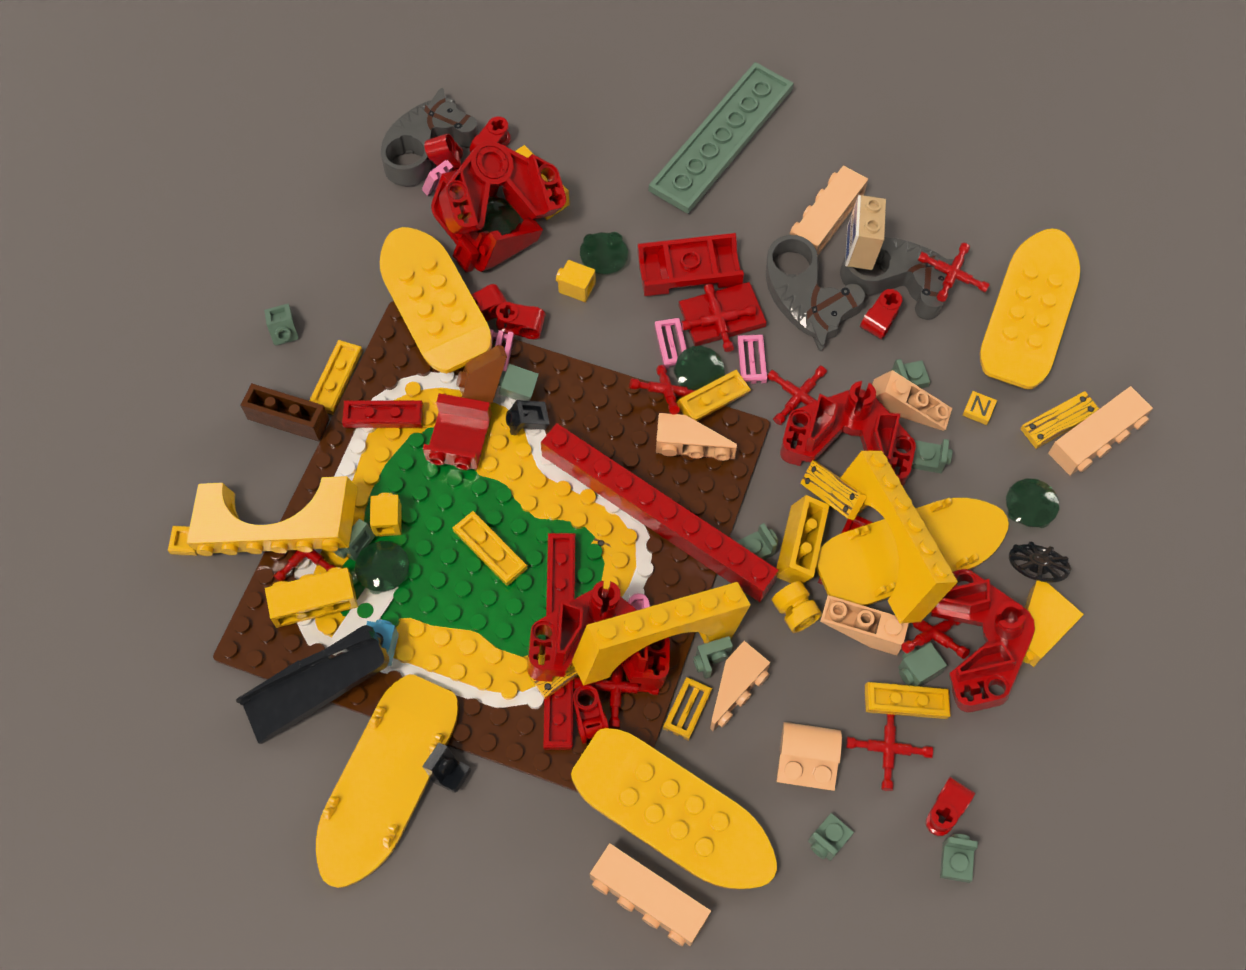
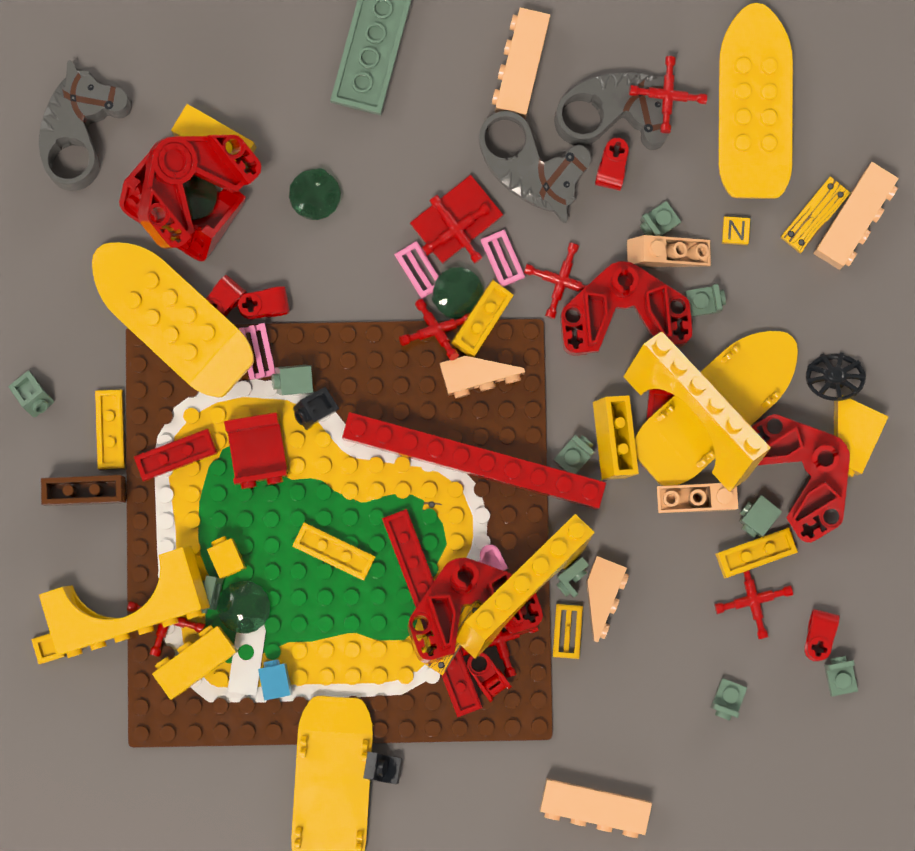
camera: 20 degrees left, 20 degrees up
(313, 682) = (236, 739): black piece -> none
(433, 178) = (119, 168): bright pink tile -> none
(444, 148) = (109, 144): red piece -> none
(466, 254) = (181, 254): red tile -> none
(482, 375) = (258, 387): dark orange slope -> none
(495, 130) = (147, 110): red piece -> none
(576, 280) = (300, 238): yellow brick -> none
(673, 811) = (589, 731): yellow piece -> none
(689, 263) = (405, 178): red piece -> none
(796, 606) = (632, 503): yellow wheel -> none
(809, 756) = (687, 635): light nougat brick -> none
(833, 490) = (627, 379): yellow tile -> none
(865, 232) = (571, 95): tan piece -> none
(937, 634) = (762, 483): red piece -> none
(1032, 503) = (812, 314): clear green dish -> none

